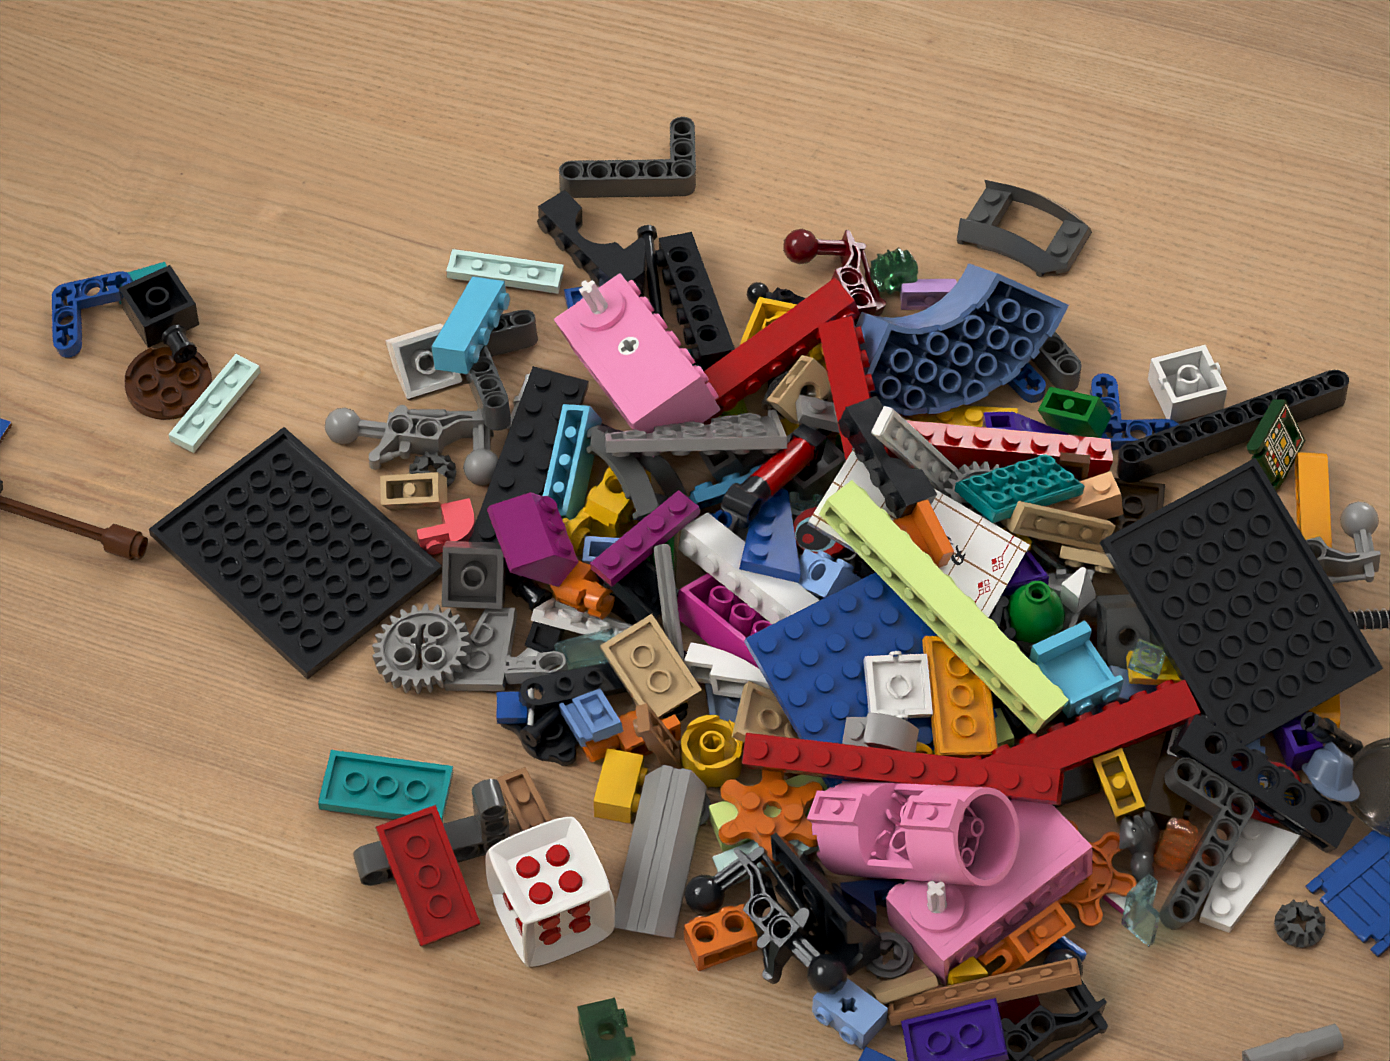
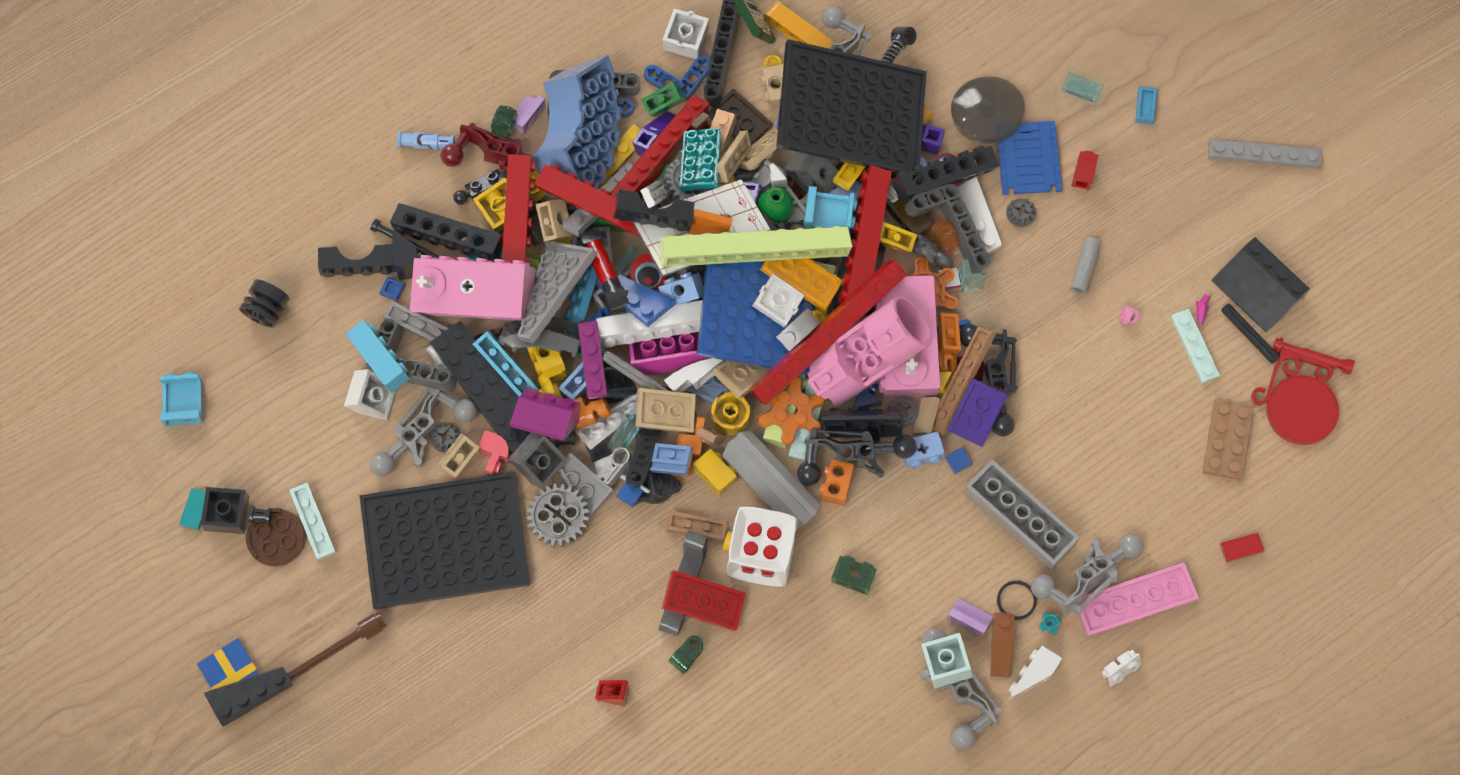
camera: 55 degrees left, 15 degrees up
(77, 300) = (181, 551): blue beam -> none
(231, 859) = (612, 691): none -> red slope
(269, 186) = (181, 399): none -> medium azure panel
(343, 908) = (685, 656): none -> clear green piece
(383, 785) = (629, 587): teal plate -> none
(449, 182) = (264, 303): none -> black wheel
(514, 271) = (342, 314): light aqua plate -> none
(552, 343) = (414, 322): none -> light grey plate
(637, 177) = (332, 201): dark grey beam -> none
(796, 209) = (428, 140): none -> light blue piece
(990, 208) = (500, 51): dark grey wedge -> none
(1147, 659) = (845, 173): clear light blue tile -> none
(1321, 731) = (941, 122): black pin -> none
(1332, 774) = (962, 138): sand blue piece -> none

